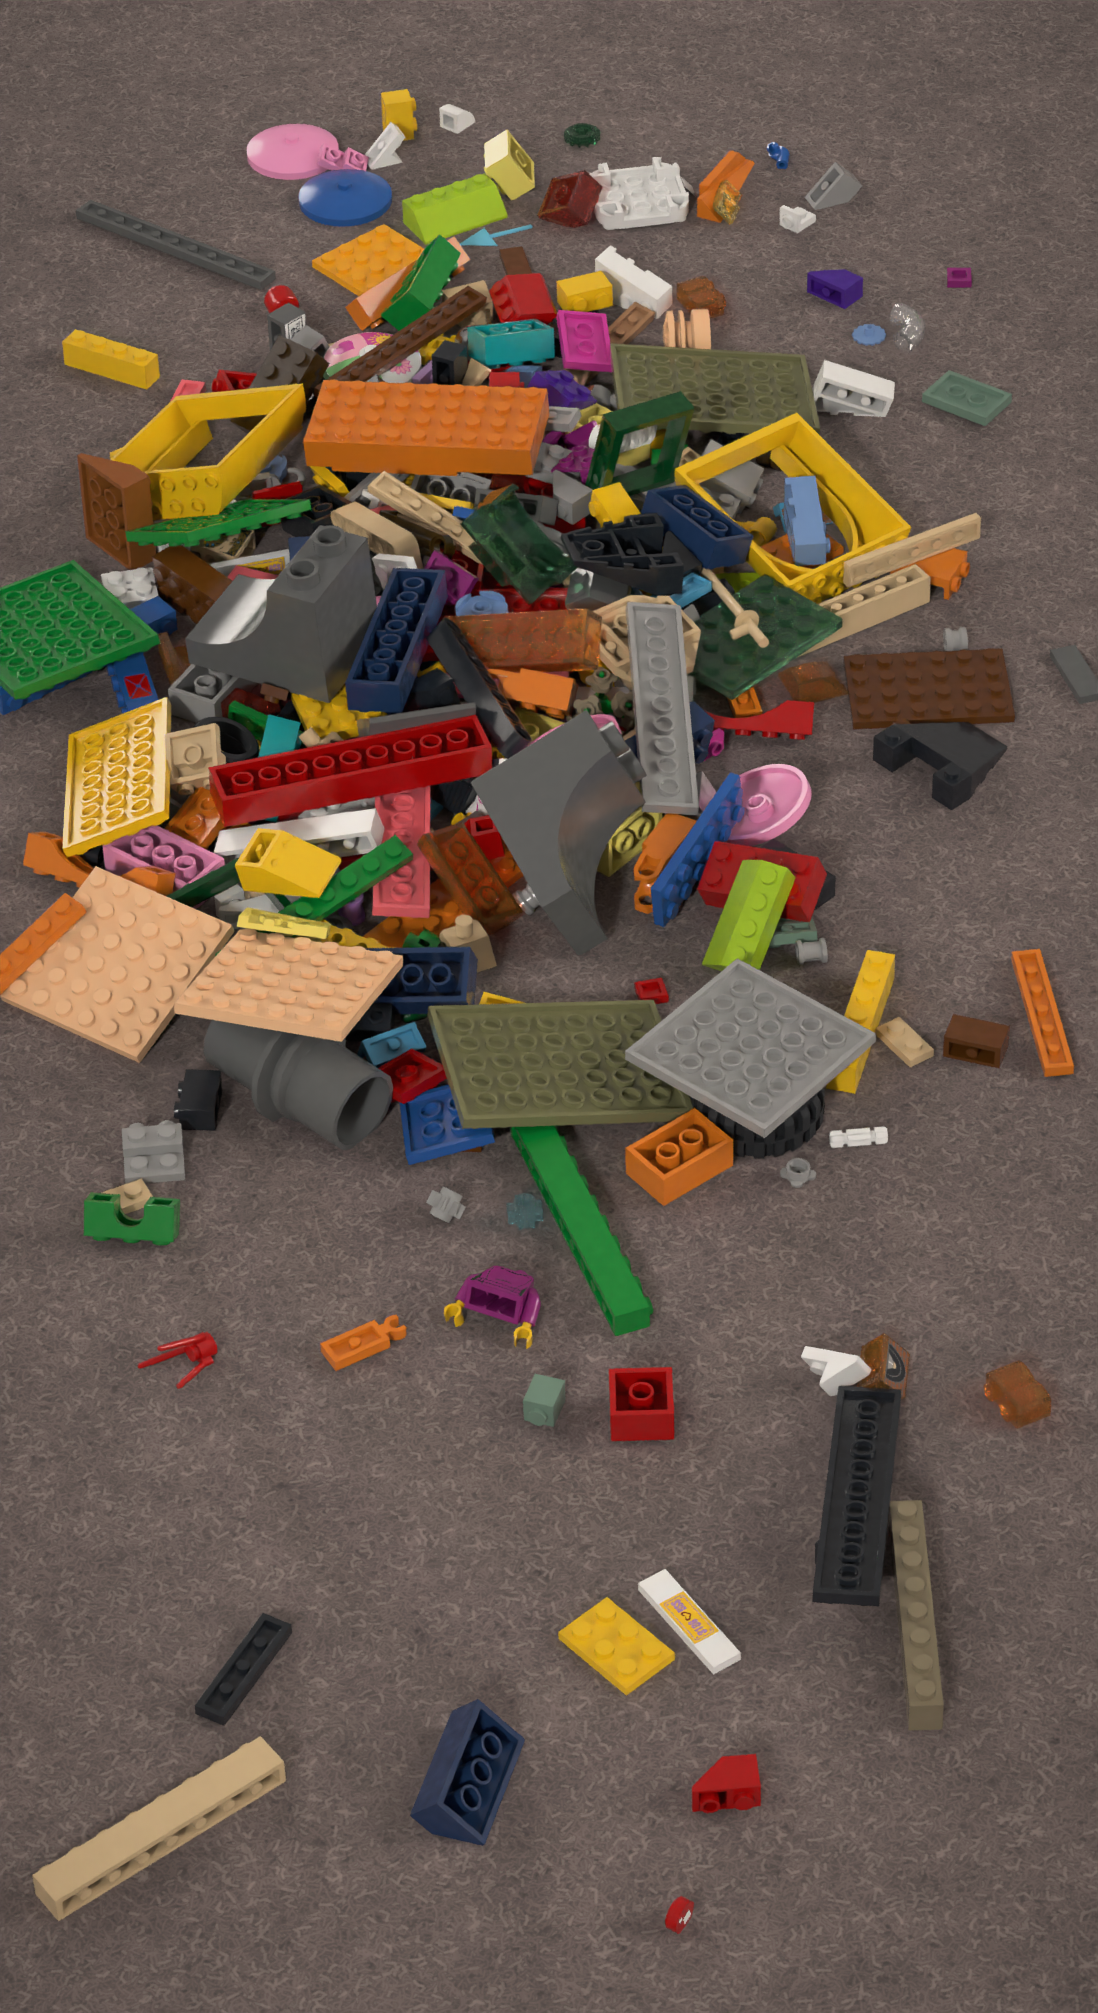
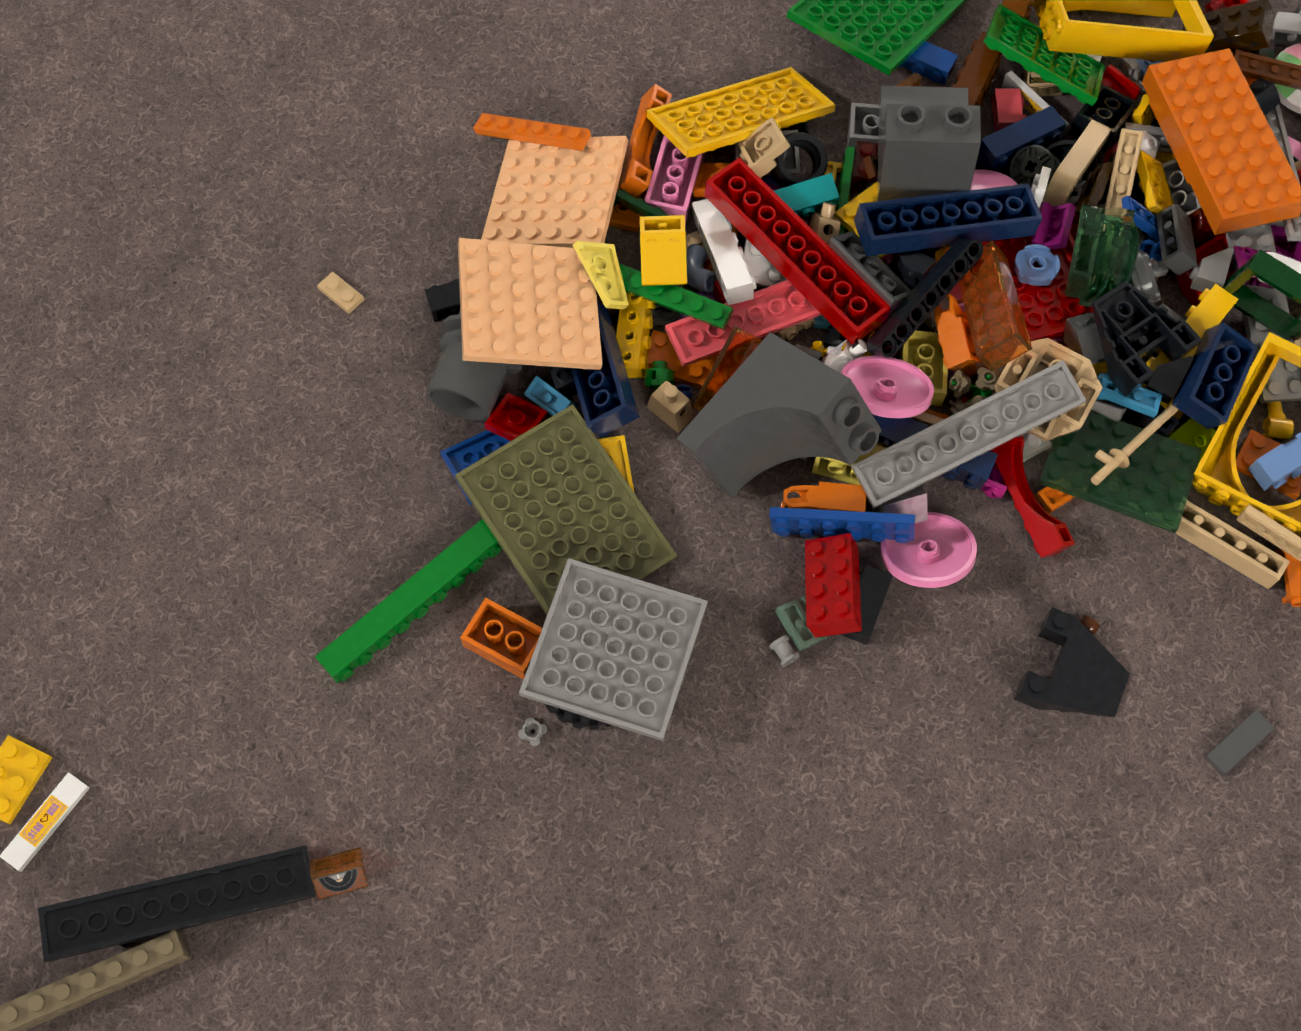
camera: 65 degrees right, 25 degrees up
(106, 1219) = (314, 319): green arch -> none
(131, 586) = (958, 36): white piece -> none
(132, 682) = (856, 87): blue brick -> none
(153, 1152) = (390, 293): light grey plate -> none
(199, 1348) = (212, 397): red plant -> none
(362, 1342) = (249, 496): orange plate -> none
(446, 1204) = (401, 497): light grey gear -> none
(502, 1295) = (317, 572): magenta torso -> none
(524, 1211) = (415, 558): clear light blue gear -> none
(544, 1400) = (226, 639): sand green brick -> none
(641, 1404) = (235, 708): red brick -> none
(652, 990) = (692, 550): red tile -> none
(750, 915) = (778, 592): lime slope -> none
(812, 682) = (1114, 536): clear orange slope -> none
(835, 1368) = (321, 836): white slope -> none
(858, 1137) = (590, 762): white axle -> none
(866, 1009) = (727, 717): yellow brick -> none
(904, 1042) = (714, 759): tan plate -> none
(928, 688) = (1155, 628): reddish brown plate -> none
(955, 639) = (1224, 627): light grey wheel -> none
(976, 1041) = (732, 817): reddish brown brick -> none
(1017, 1394) = (339, 988): clear orange brick -> none
(1042, 1013) = (791, 858): orange plate -> none

